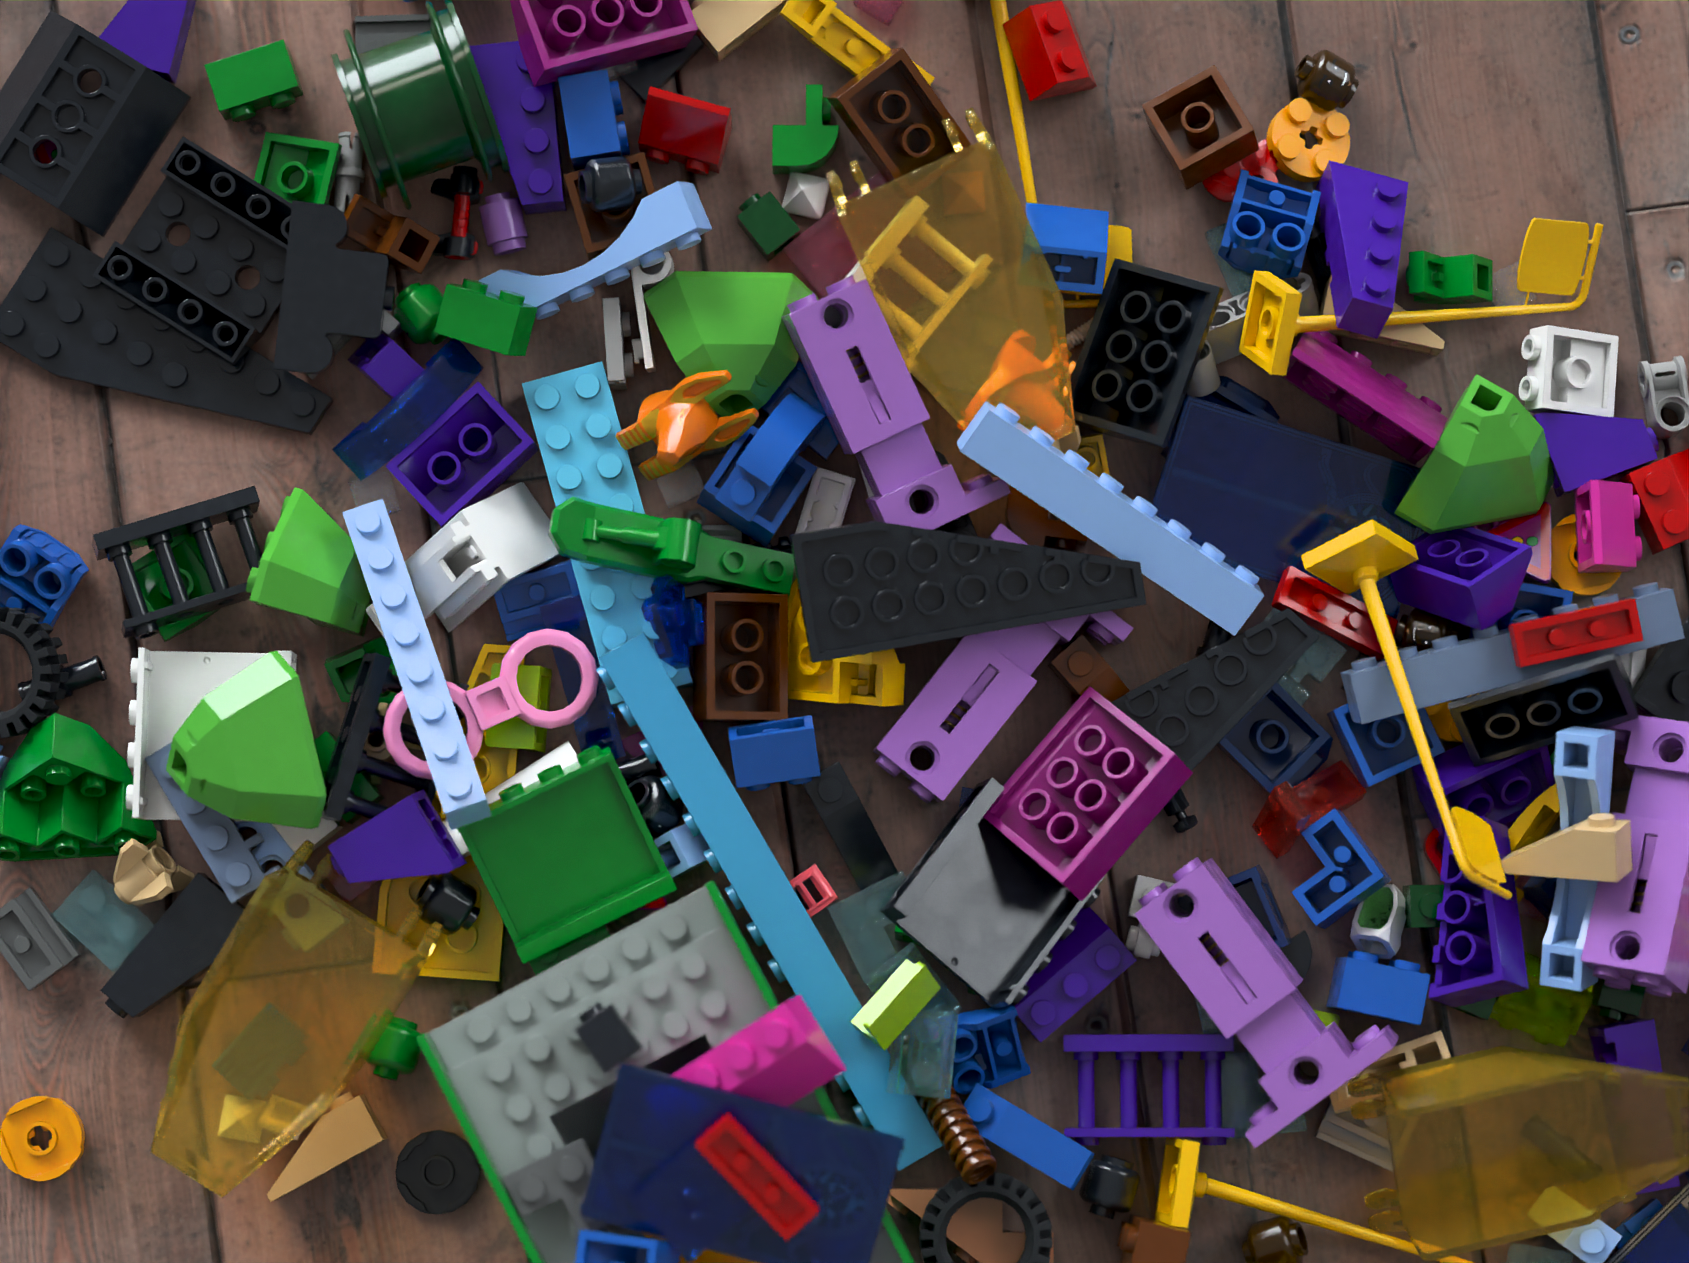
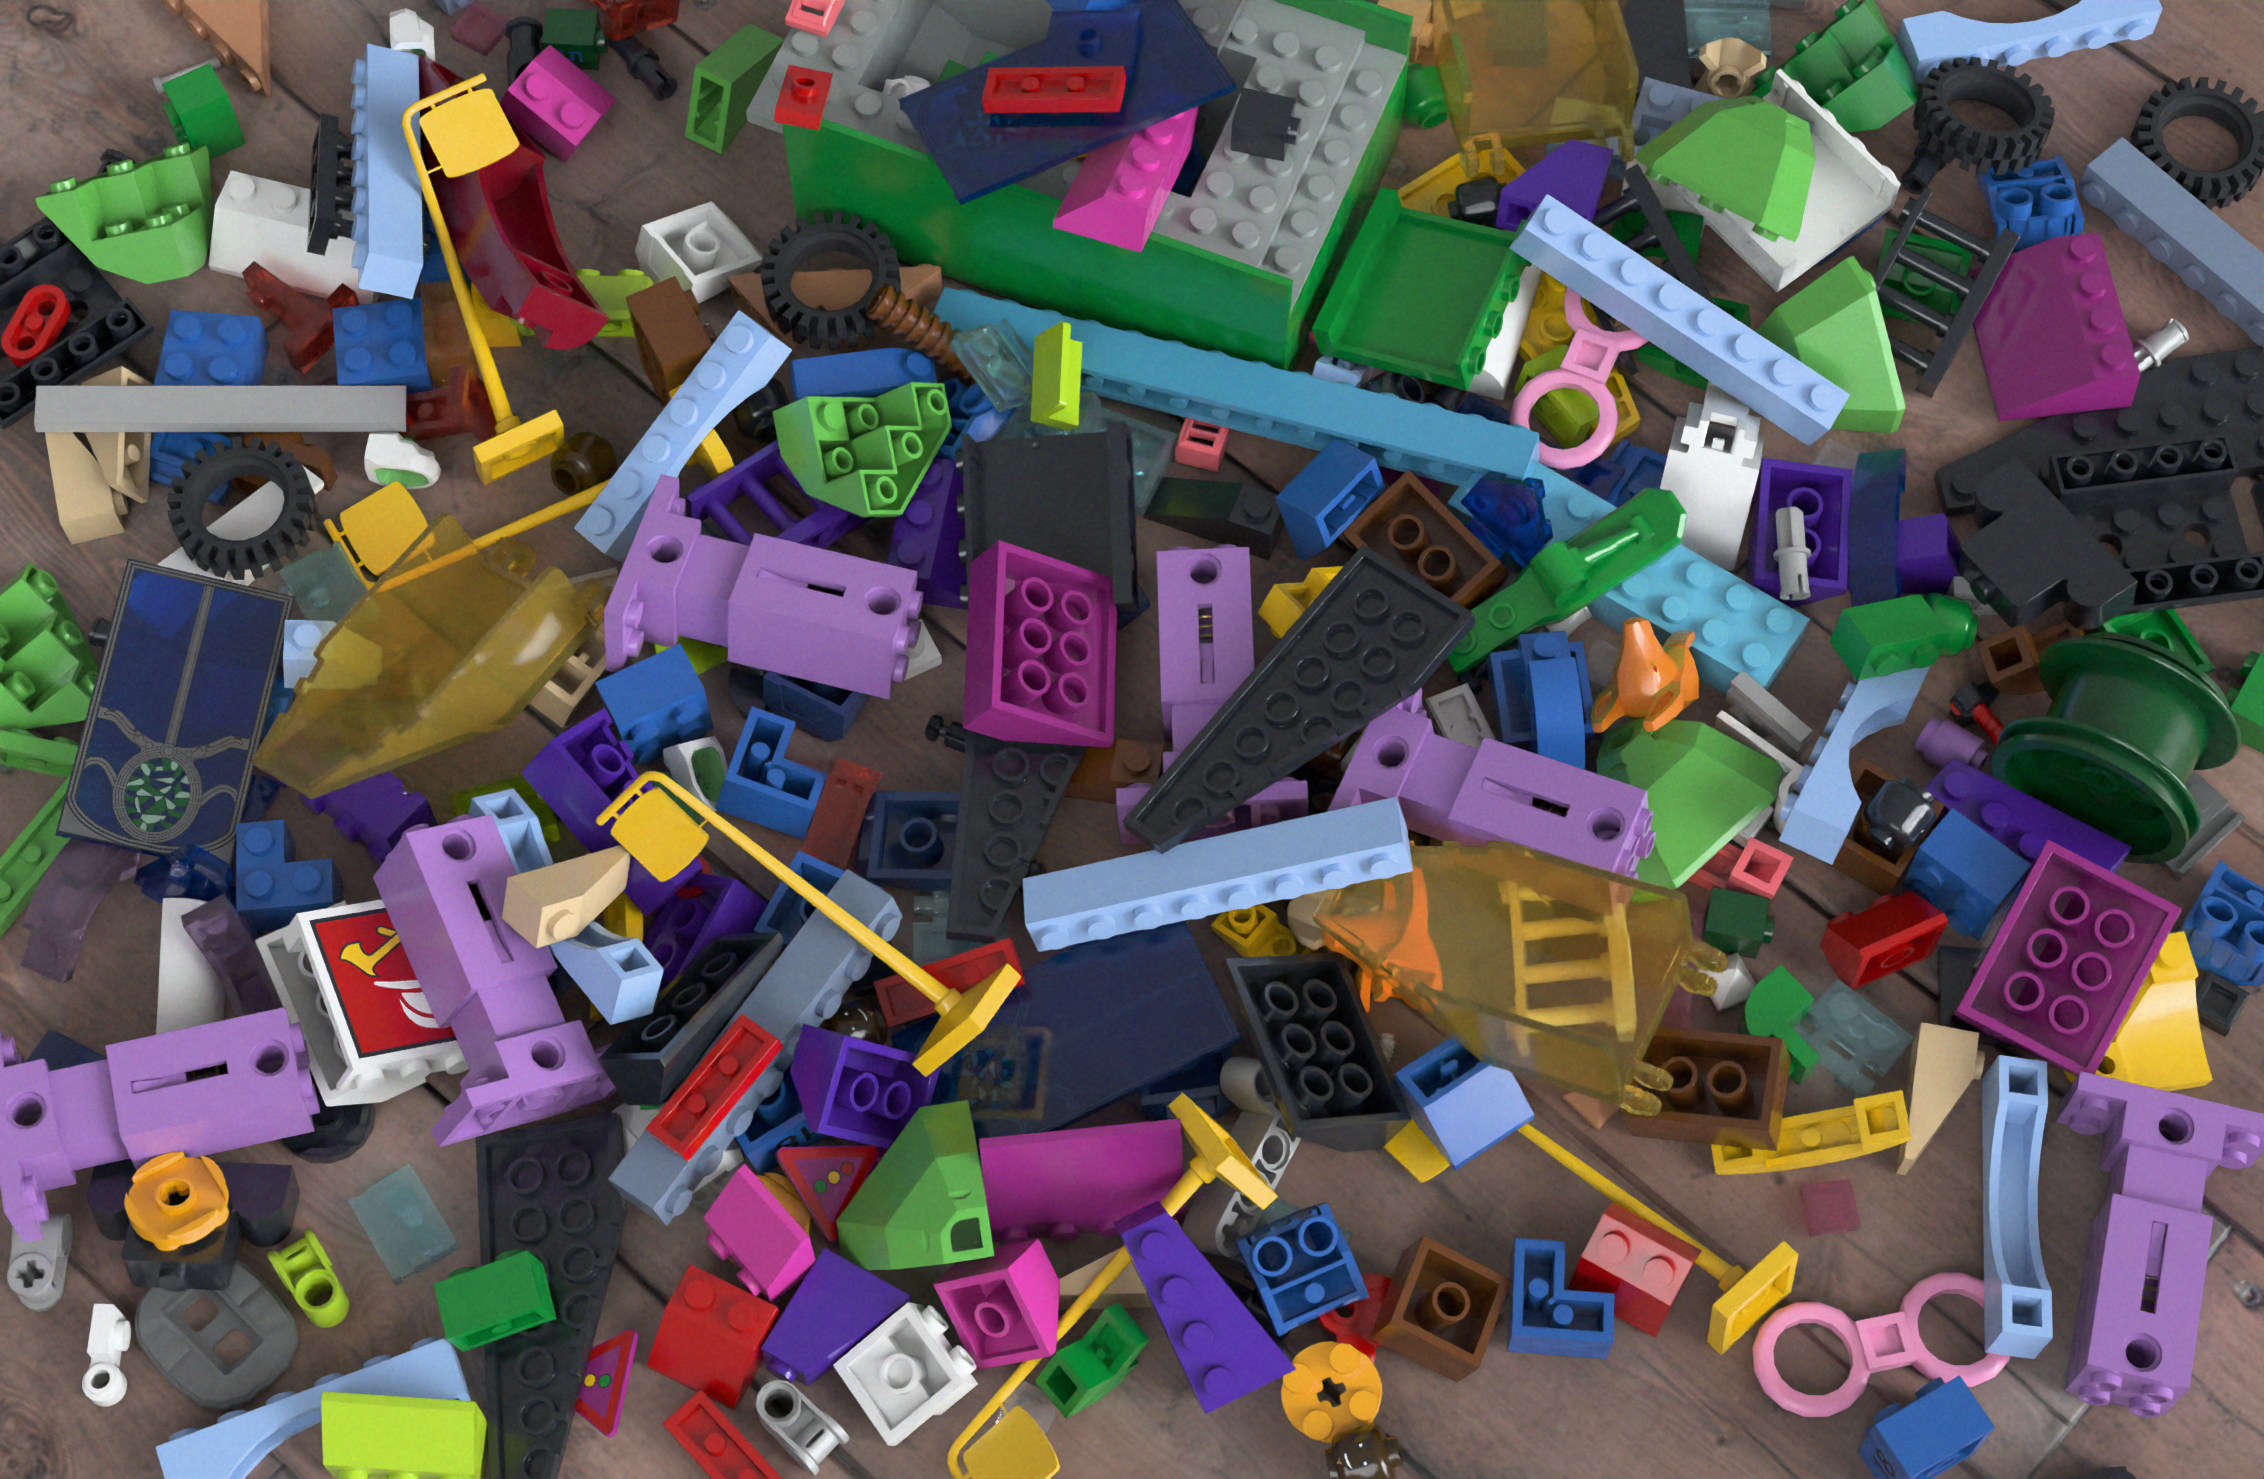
camera: 145 degrees right, 20 degrees down
(70, 394) = (2159, 344): none -> light grey axle
(125, 458) = (2056, 333): none -> magenta slope
(497, 430) = (1792, 554): none -> light grey axle
(728, 246) = (1750, 871): none -> coral slope
(750, 92) = (1858, 1029): none -> clear light blue plate
(1077, 1065) = (864, 450): none -> bright green brick
(1134, 69) = (1546, 1316): none -> blue brick
(1195, 1187) = (729, 372): none -> light blue arch
(1475, 345) = (1004, 1304): none -> dark pink slope

